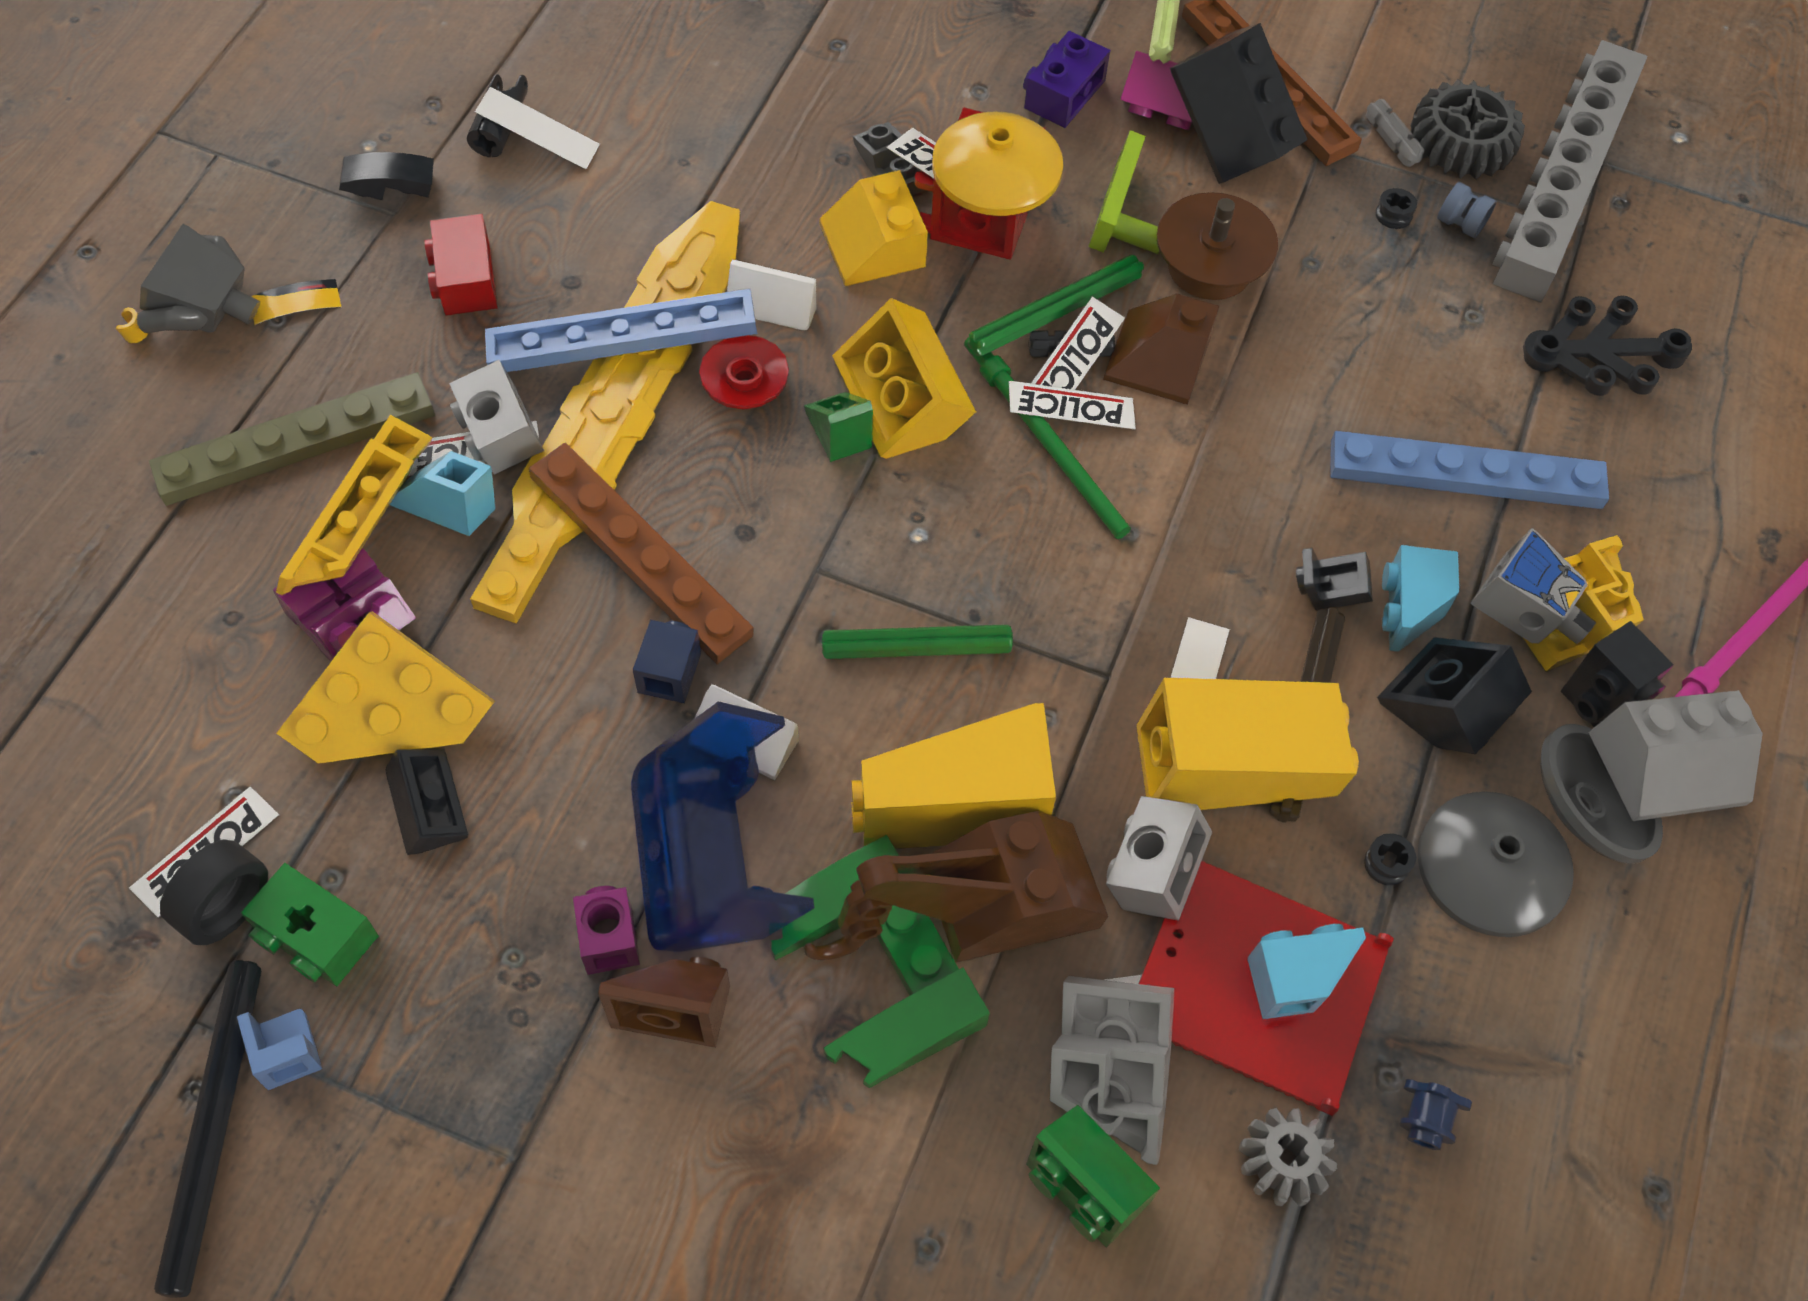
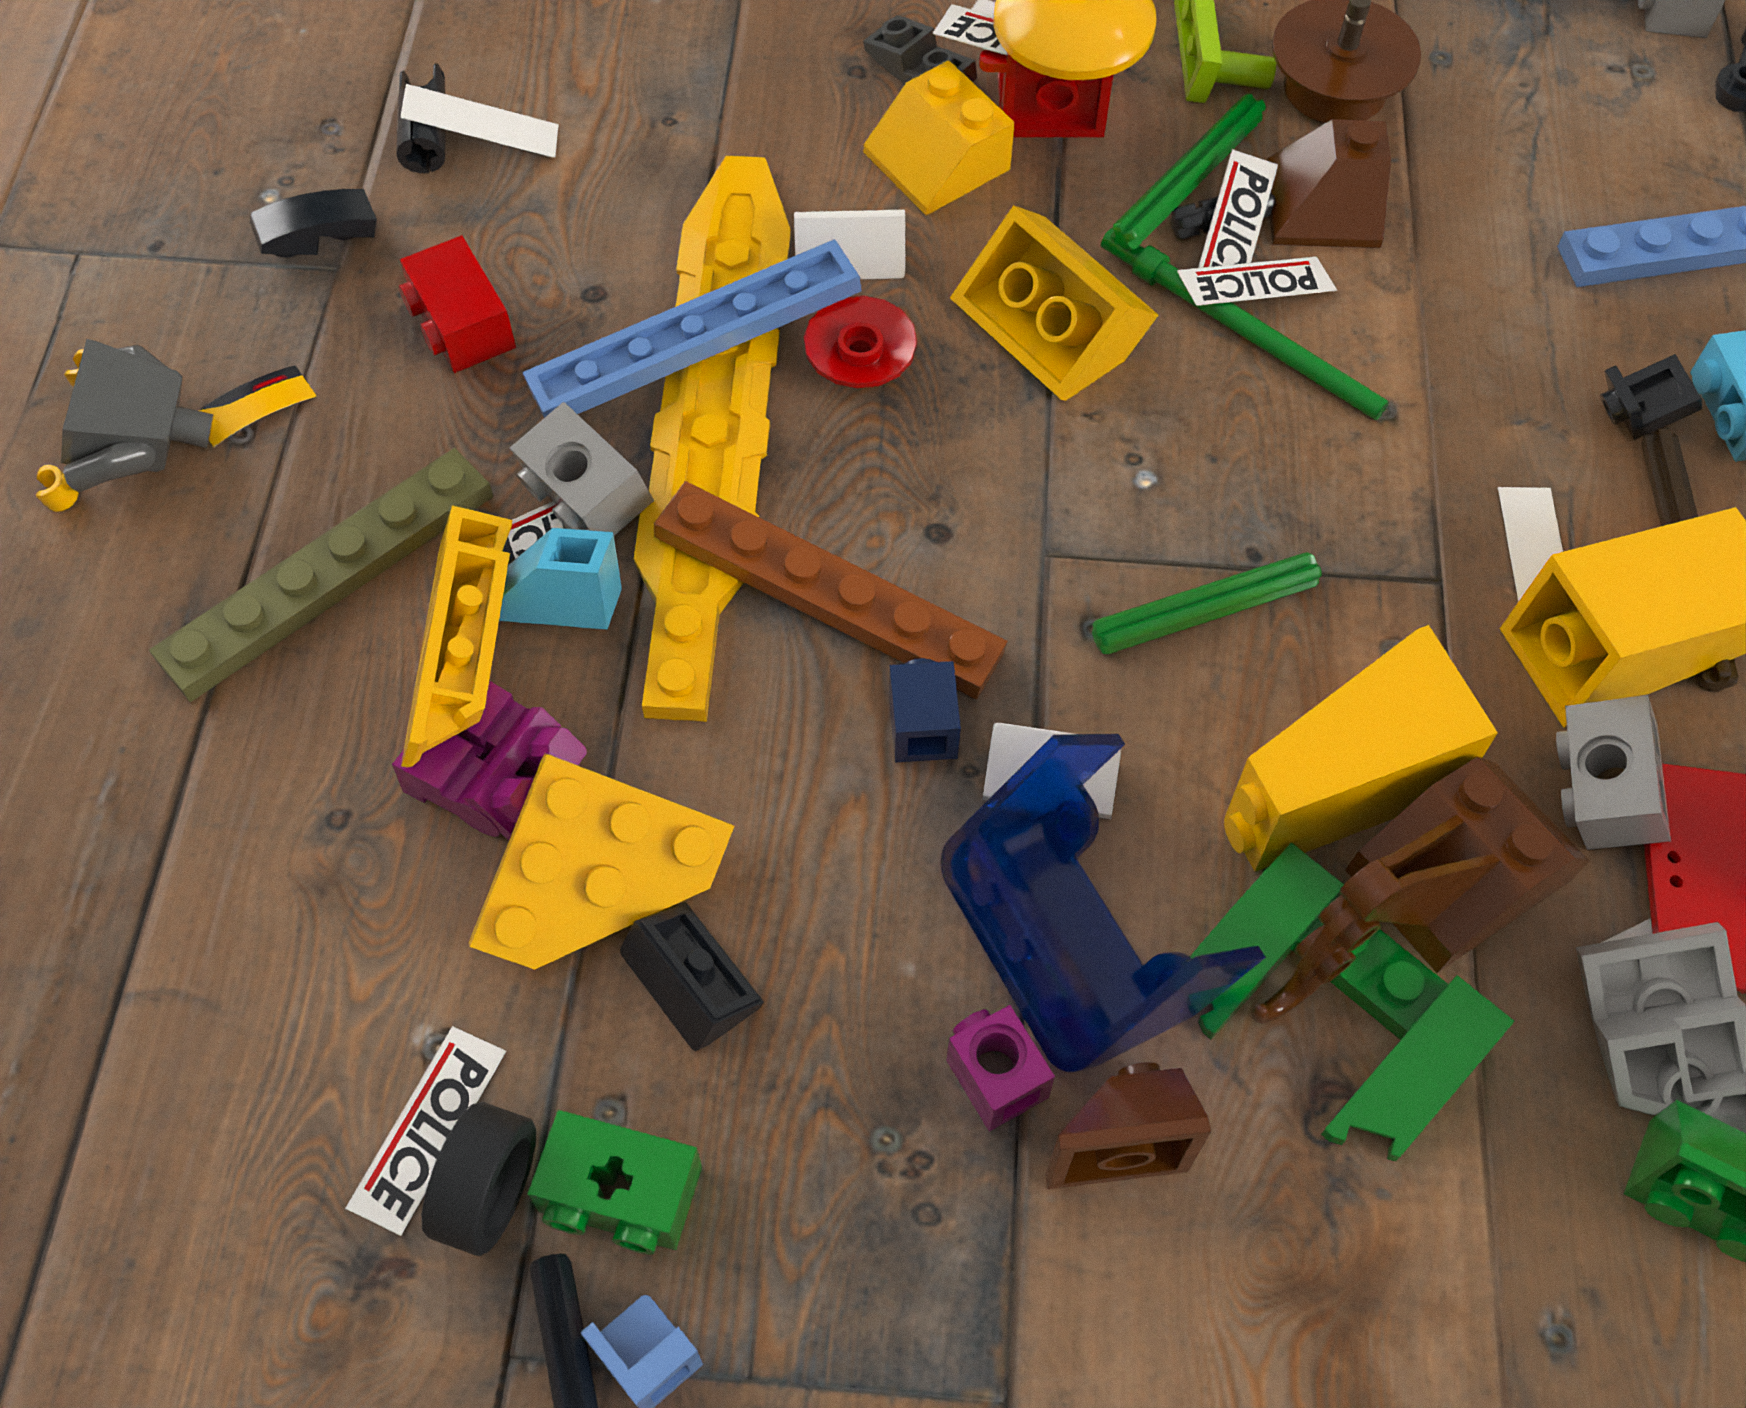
camera: 15 degrees left, 0 degrees up
(842, 424) = (1003, 370): green slope -> none

